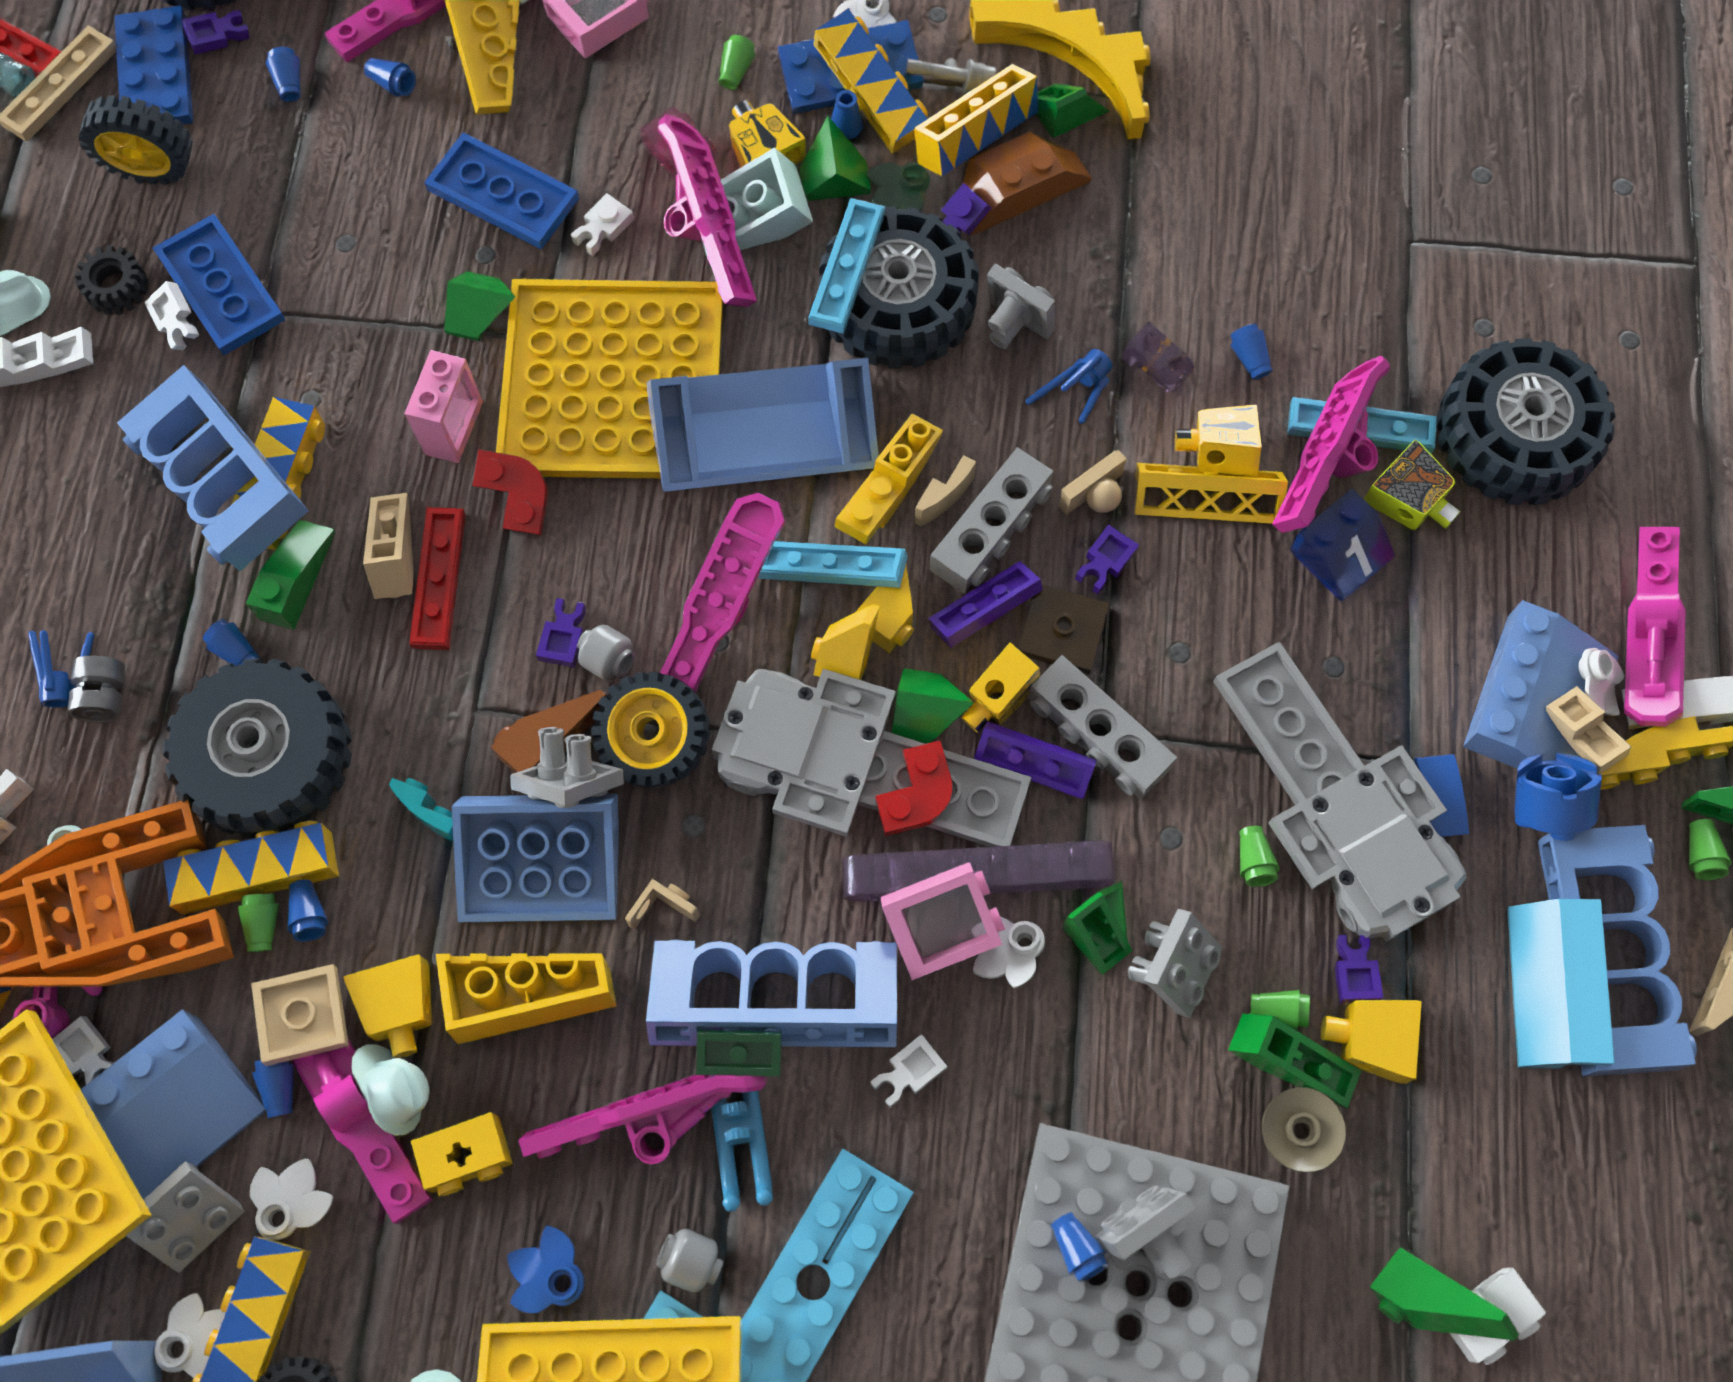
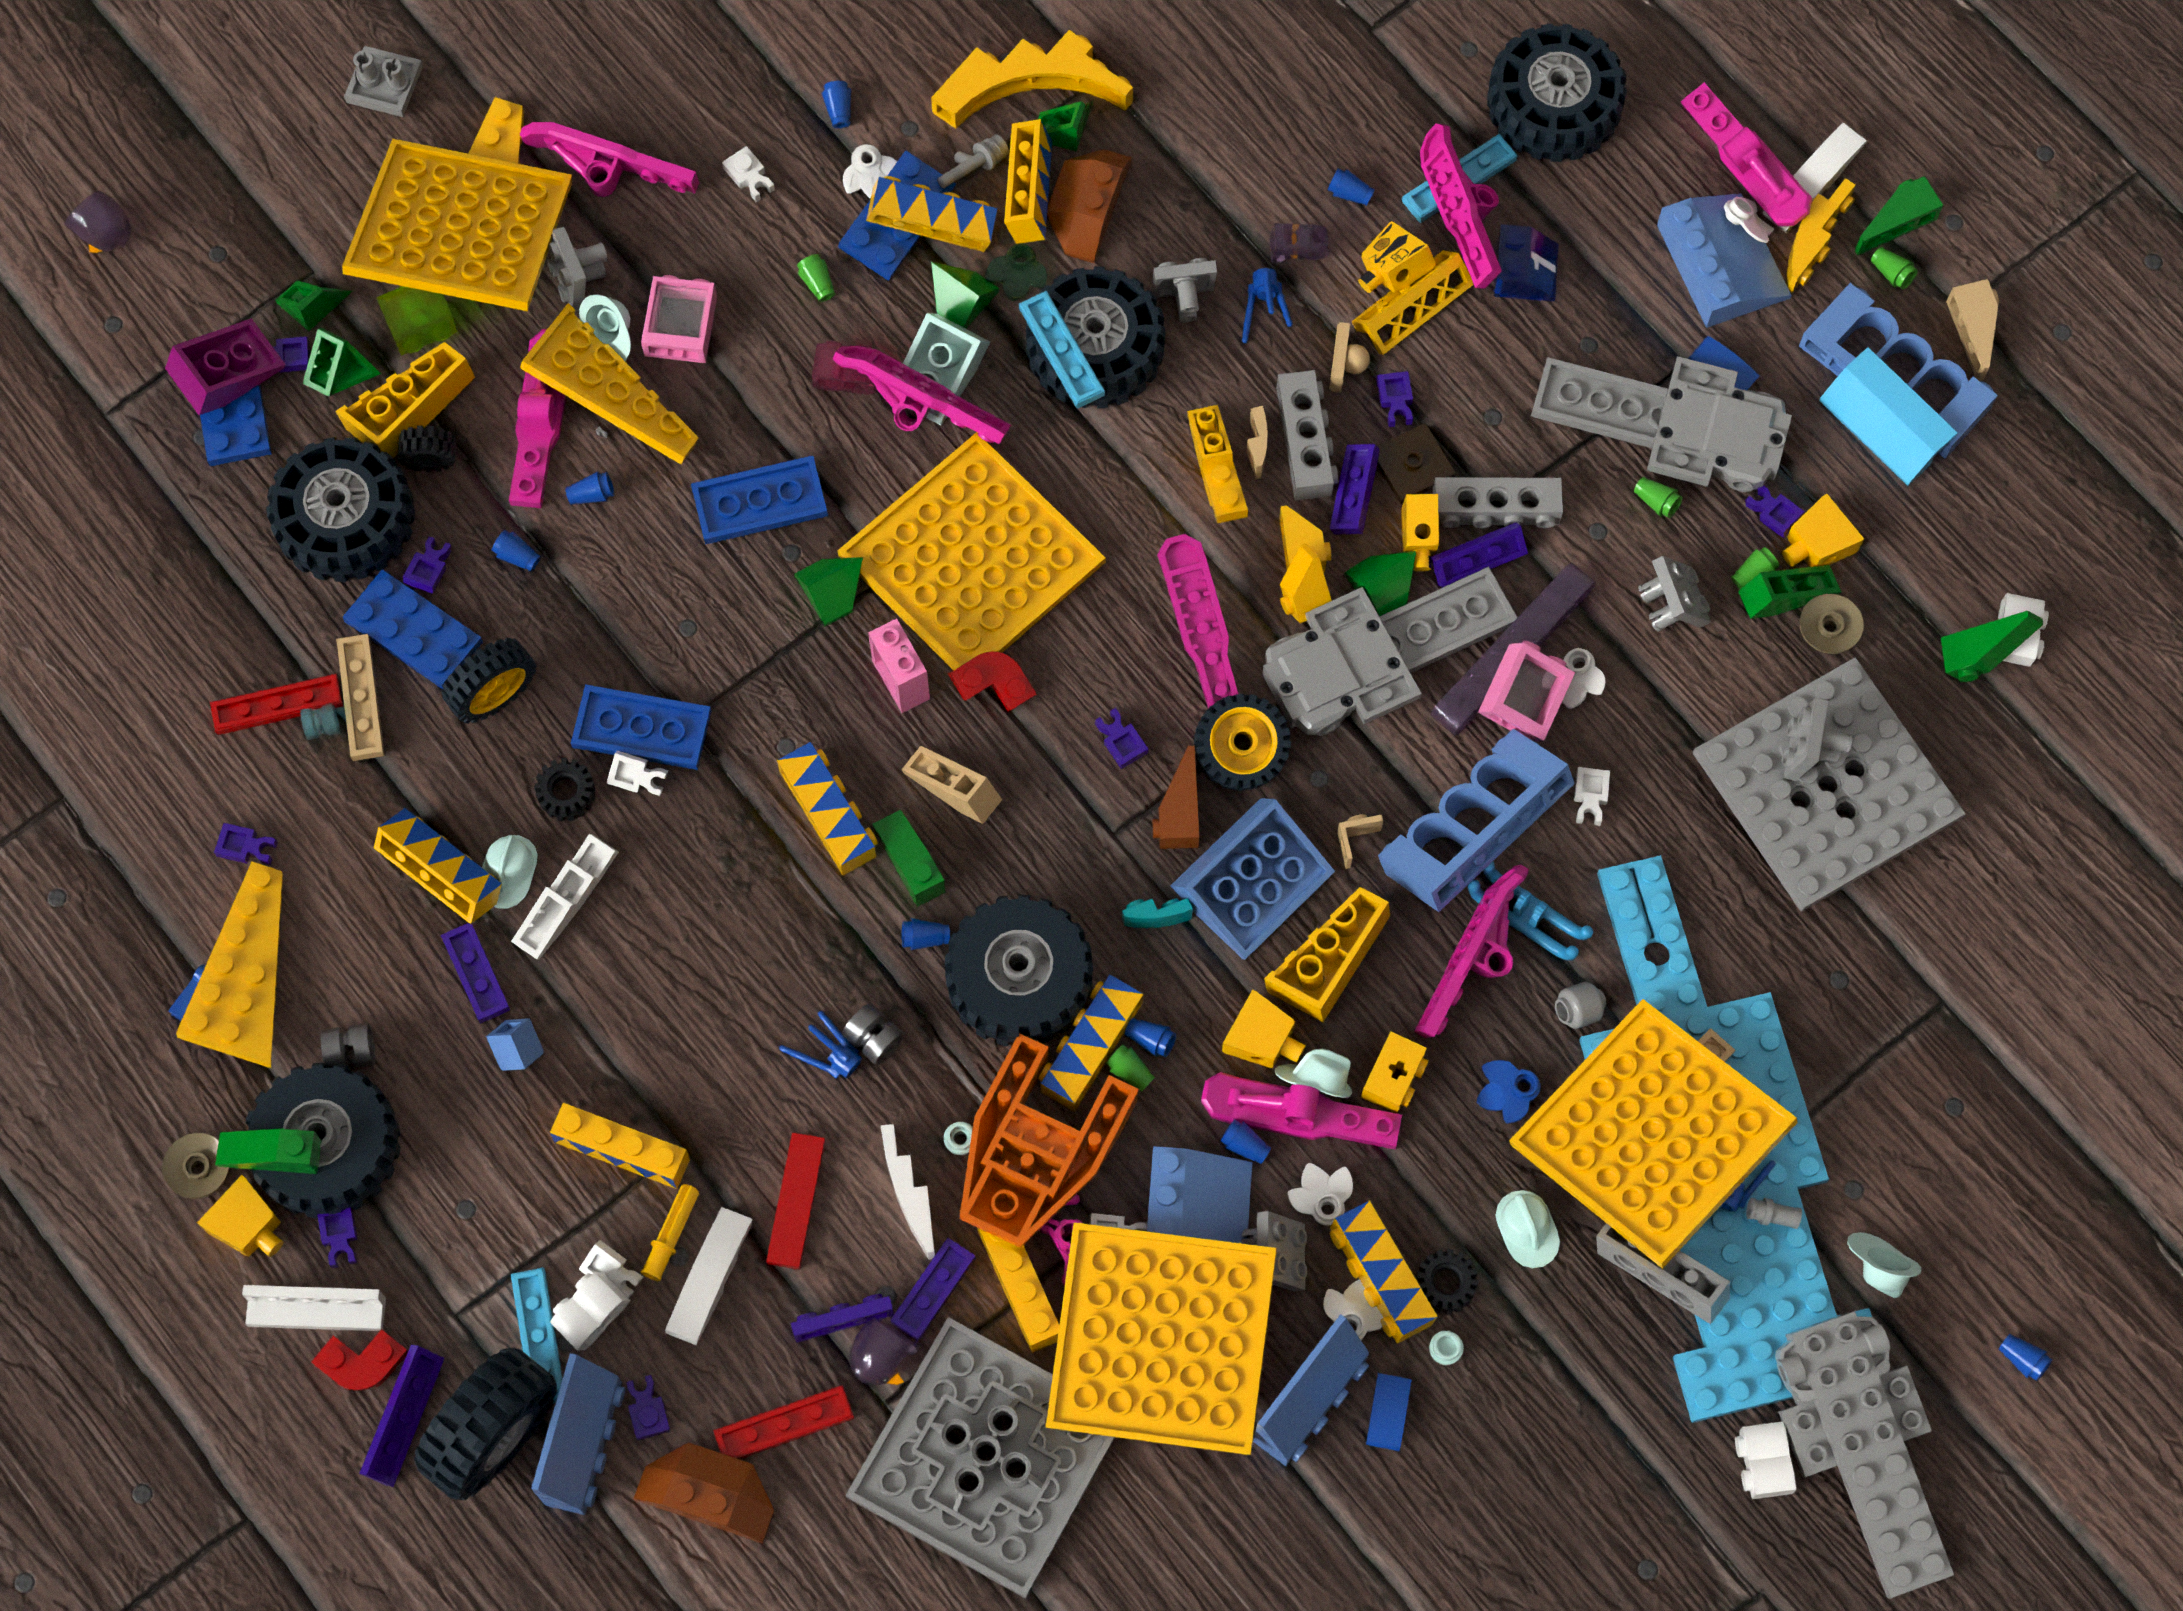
camera: 45 degrees left, 0 degrees up
(251, 520) = (719, 824): medium blue fence -> none
(299, 1015) = (1224, 1084): tan plate -> none
(437, 578) = (1013, 788): red tile -> none
(567, 777) = (1228, 813): light grey plate -> none
(603, 221) = (848, 461): white plate -> none
(605, 652) = (1161, 724): light grey head -> none
(738, 1053) = (1497, 863): dark green plate -> none
(762, 130) = (895, 314): yellow torso -> none
(763, 424) = (1105, 498): medium blue slope -> none
(835, 564) = (1250, 540): medium azure tile -> none
(847, 114) = (934, 250): blue cone -> none
(926, 797) = (1442, 629): red plate -> none
(965, 209) = (1081, 249): dark purple plate -> none
(1079, 1248) = (1783, 788): blue cone -> none
(1101, 928) = (1613, 619): green slope -> none
(1414, 489) = (1532, 192): torso -> none
(1557, 795) = (1789, 308): blue brick -> none
(1583, 727) = (1763, 254): tan slope -> none

